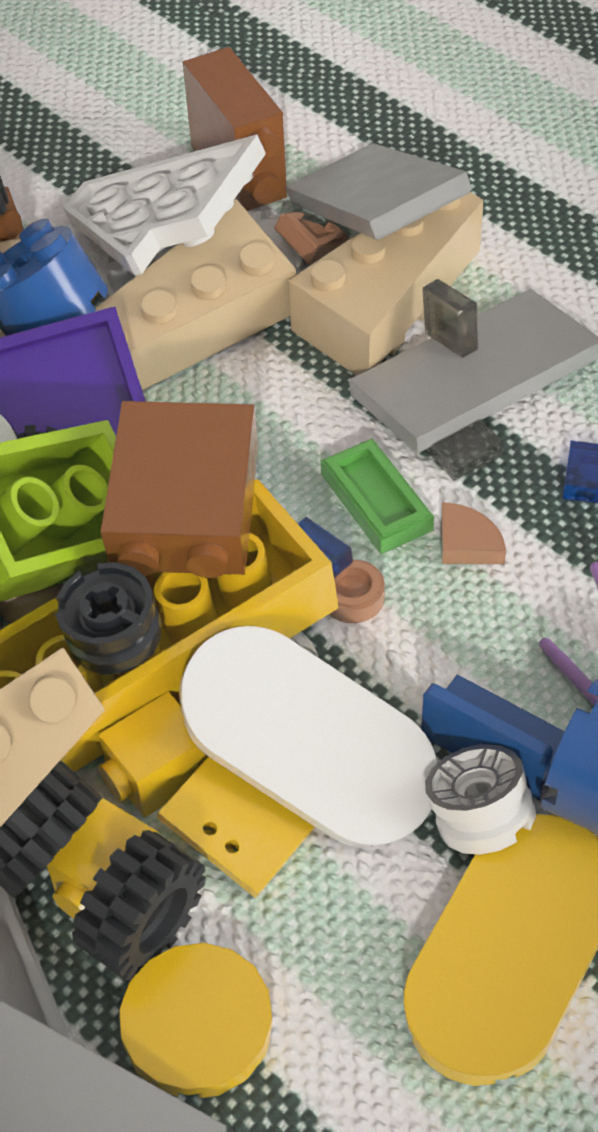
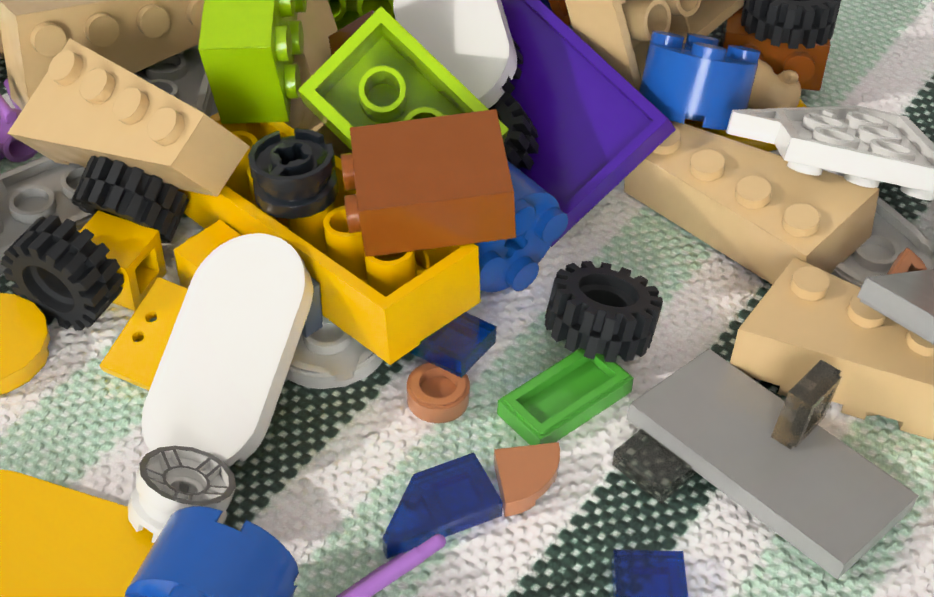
camera: 75 degrees right, 5 degrees down
(302, 437) = (603, 311): none -> black tyre
(474, 716) = (280, 494): blue panel -> none
(492, 602) = (443, 503): none -> clear blue tile

